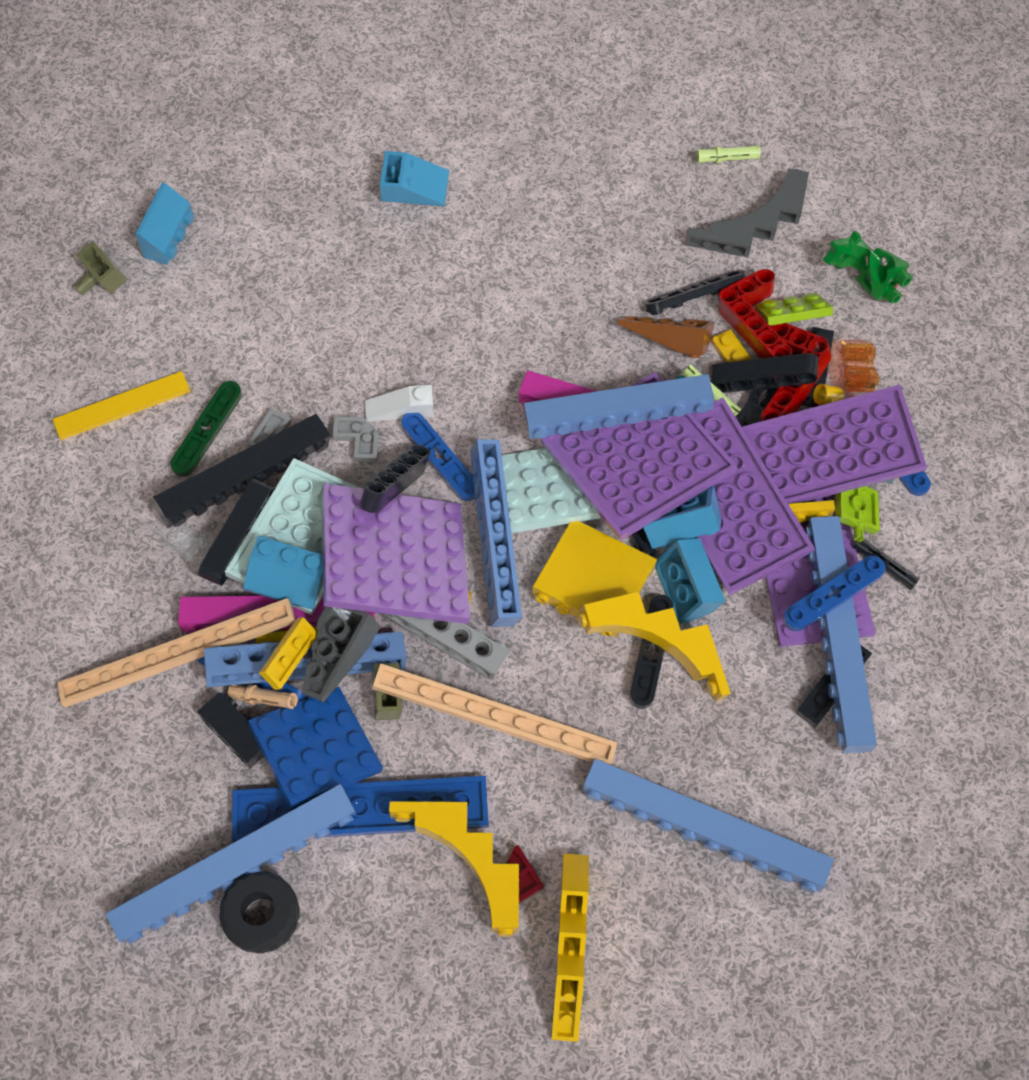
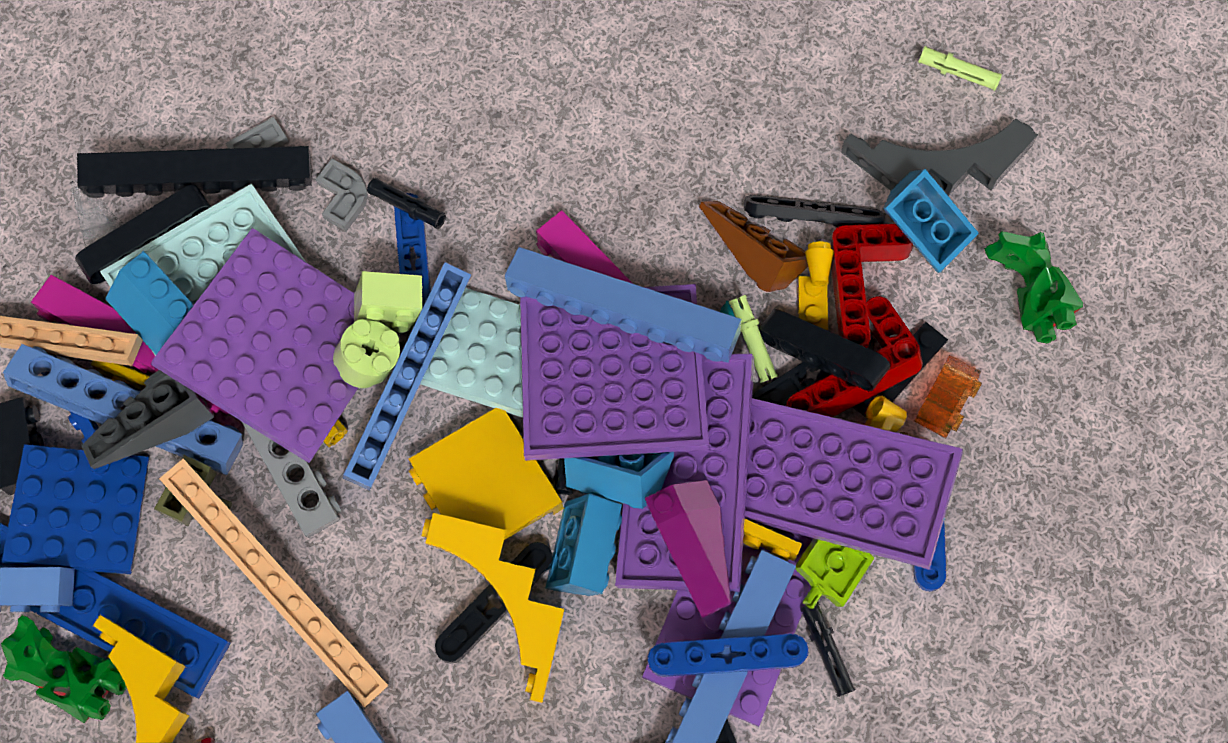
camera: 35 degrees right, 5 degrees up
(121, 405) = (135, 39): yellow tile -> none
(215, 415) = (184, 114): dark green piece -> none
(253, 694) = (57, 419): light nougat pin -> none
(288, 653) = (96, 396): yellow plate -> none
(394, 478) = (333, 260): black beam -> none
(397, 867) = (75, 691): none -> green hips
(399, 402) = (412, 179): white slope -> none
(423, 418) = (414, 207): none -> black pin
(453, 486) = (389, 299): none -> yellowish green brick
(461, 528) = (381, 349): none -> yellowish green brick
(722, 319) = (819, 262): none -> yellow cone
(762, 529) = (693, 533): none -> magenta wedge
(777, 255) = (929, 218): none -> dark azure slope
(794, 309) = (913, 290): lime plate -> none

